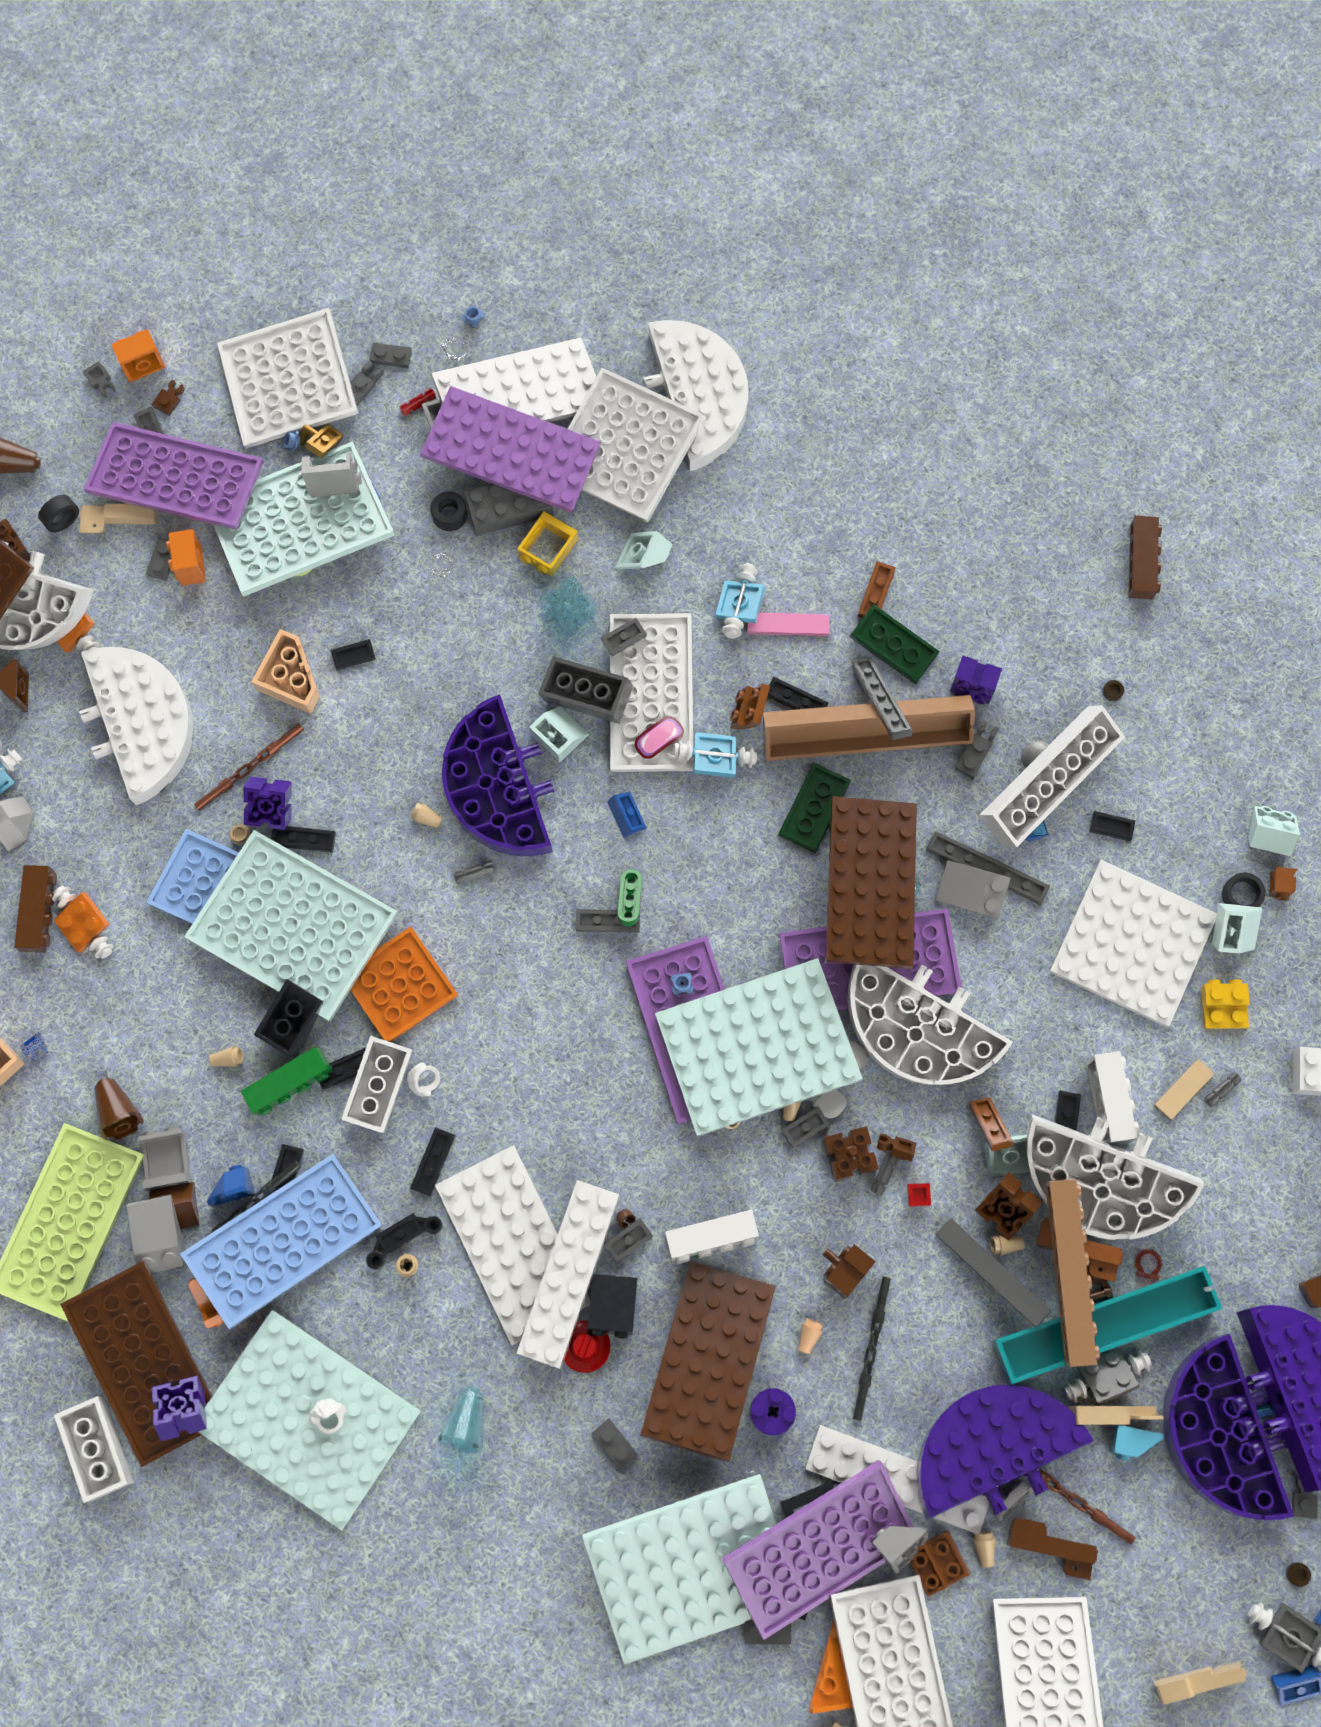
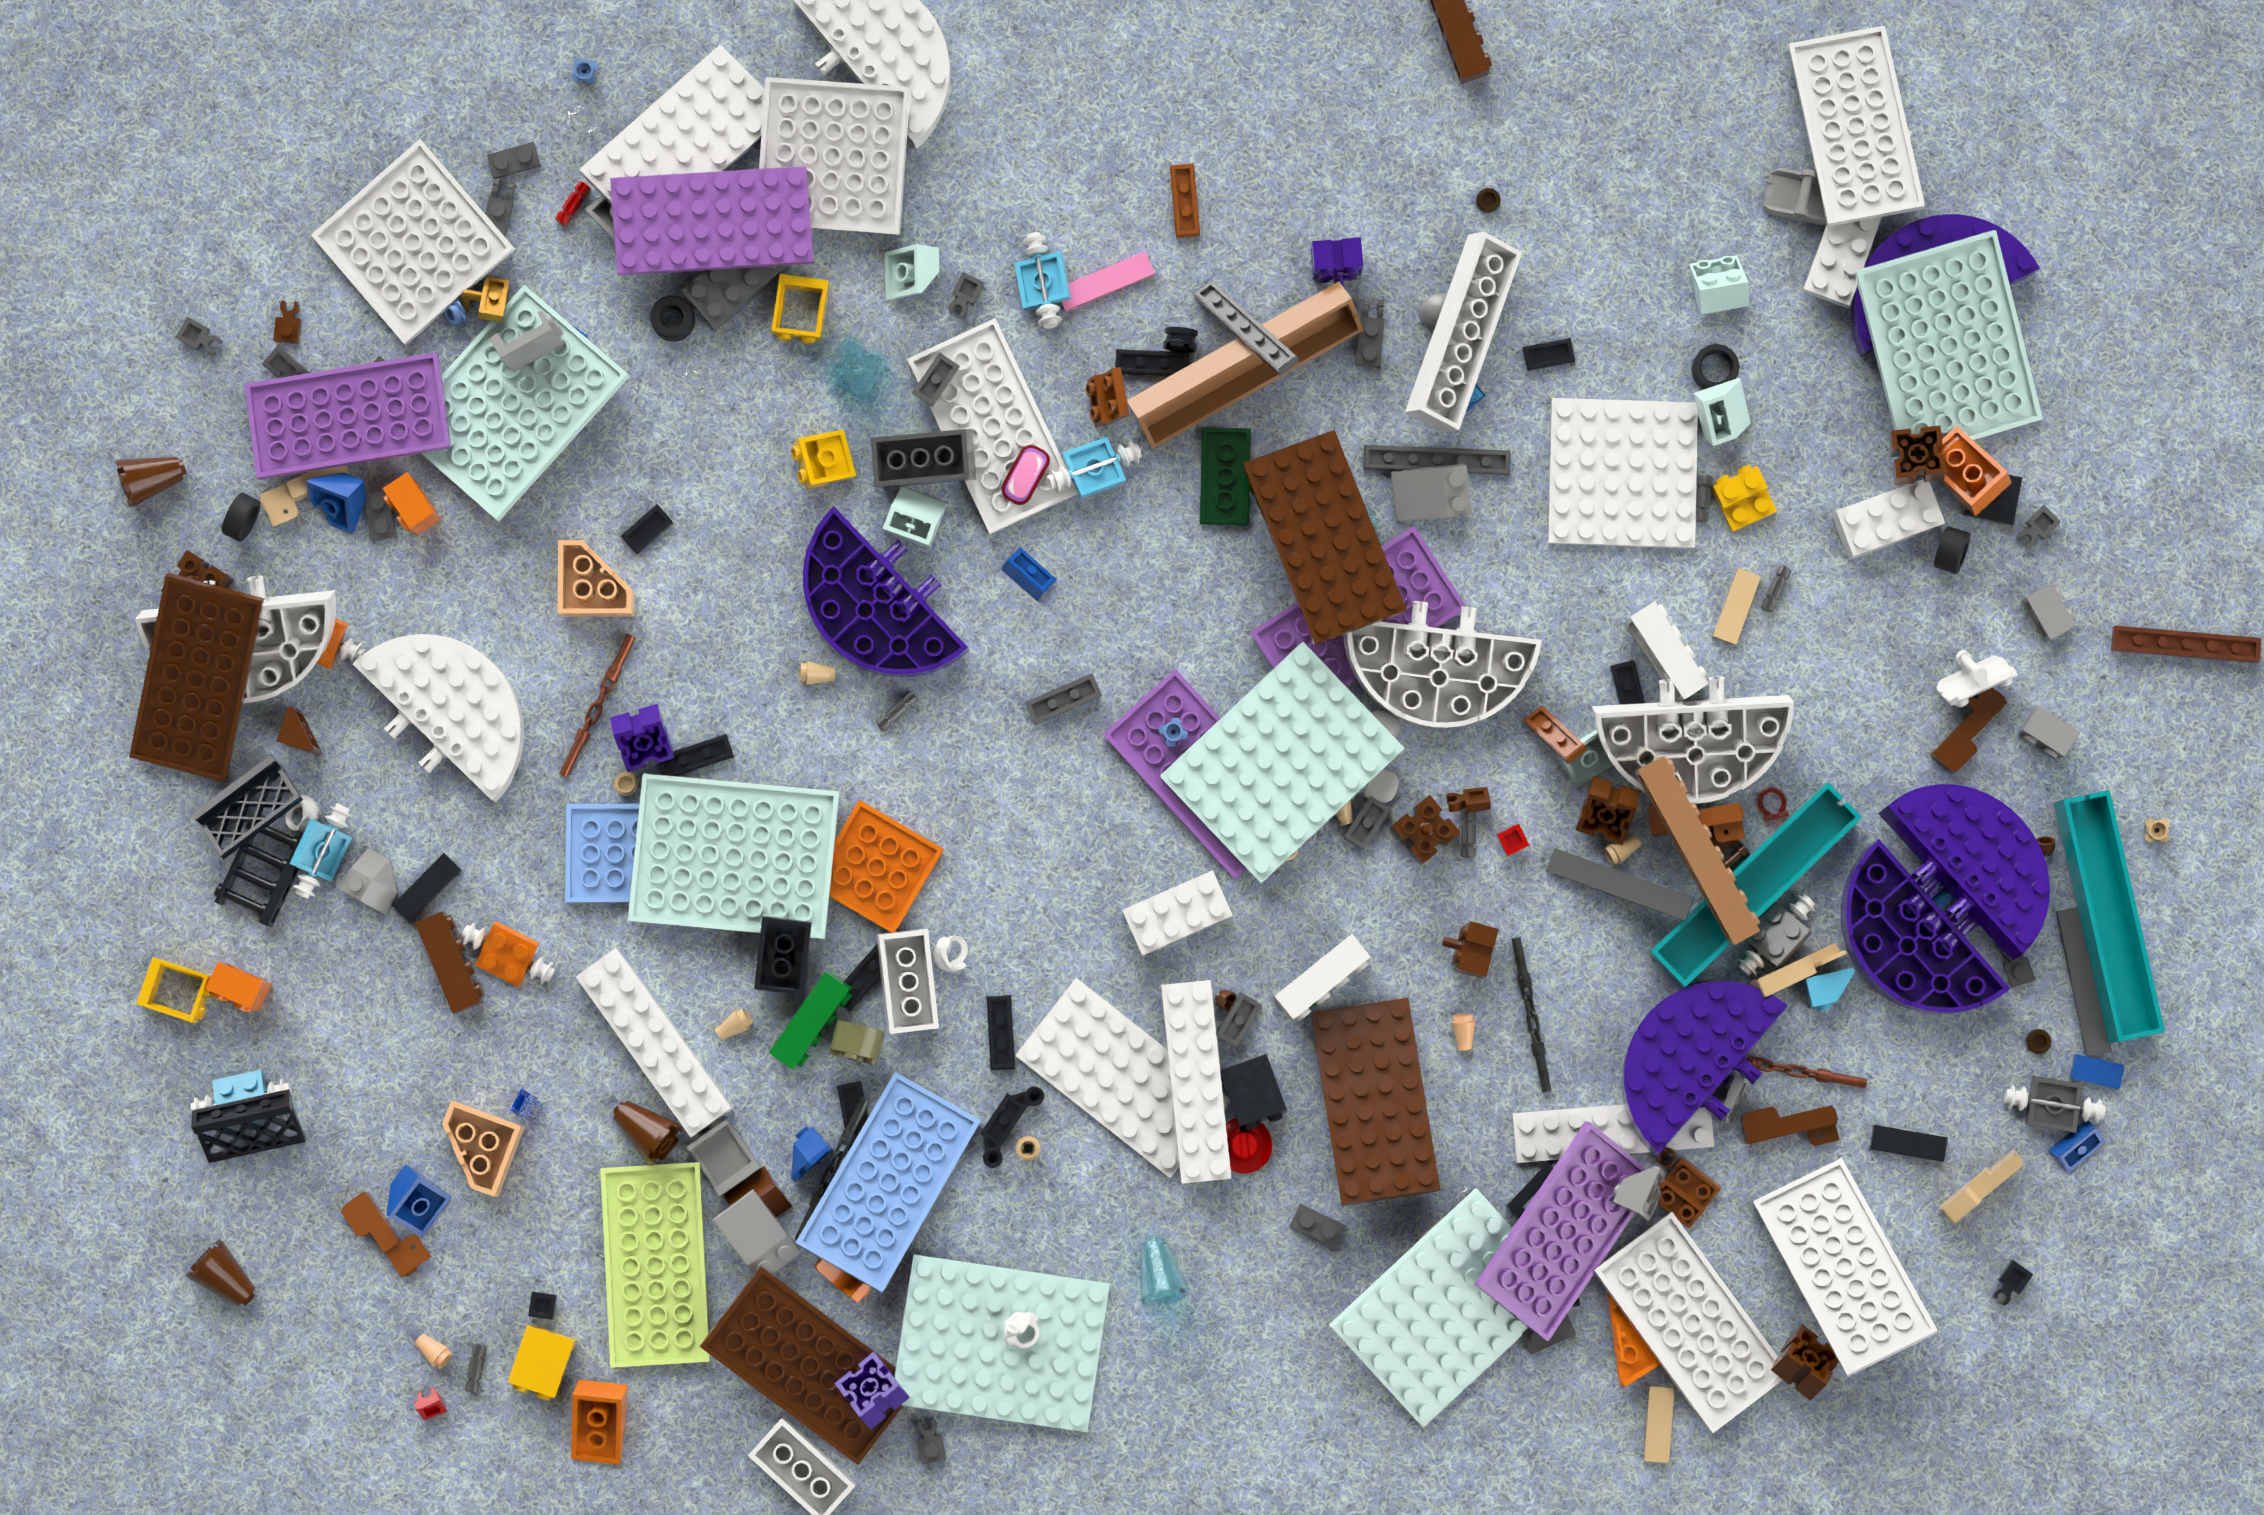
camera: 25 degrees left, 10 degrees up
(49, 845) = (427, 887): none -> black tile
(138, 355) = (231, 291): orange brick -> none
(138, 531) = (340, 498): none -> blue slope
(157, 1043) = (654, 1042): none -> white brick
(210, 1480) = (931, 1446): none -> dark grey plate
(313, 1115) = (856, 1042): none -> olive brick
(510, 659) = (823, 459): none -> yellow plate
(618, 1129) = (1177, 913): none -> white brick
(629, 891) = (1072, 657): plate -> none
(678, 586) = (967, 291): none -> dark grey plate
(774, 1398) = (1474, 1119): dark purple brick -> none
(826, 688) = (1180, 339): none -> black wheel
(894, 644) = (1230, 253): dark green tile -> none
(934, 1530) = (1669, 1162): none -> reddish brown hinge
(985, 1547) = (1725, 1156): tan cone -> none
(1149, 1611) = (1908, 1143): none -> black tile
(1192, 990) = (1703, 497): none -> dark grey axle
(1282, 883) = (1751, 339): dark orange window -> none

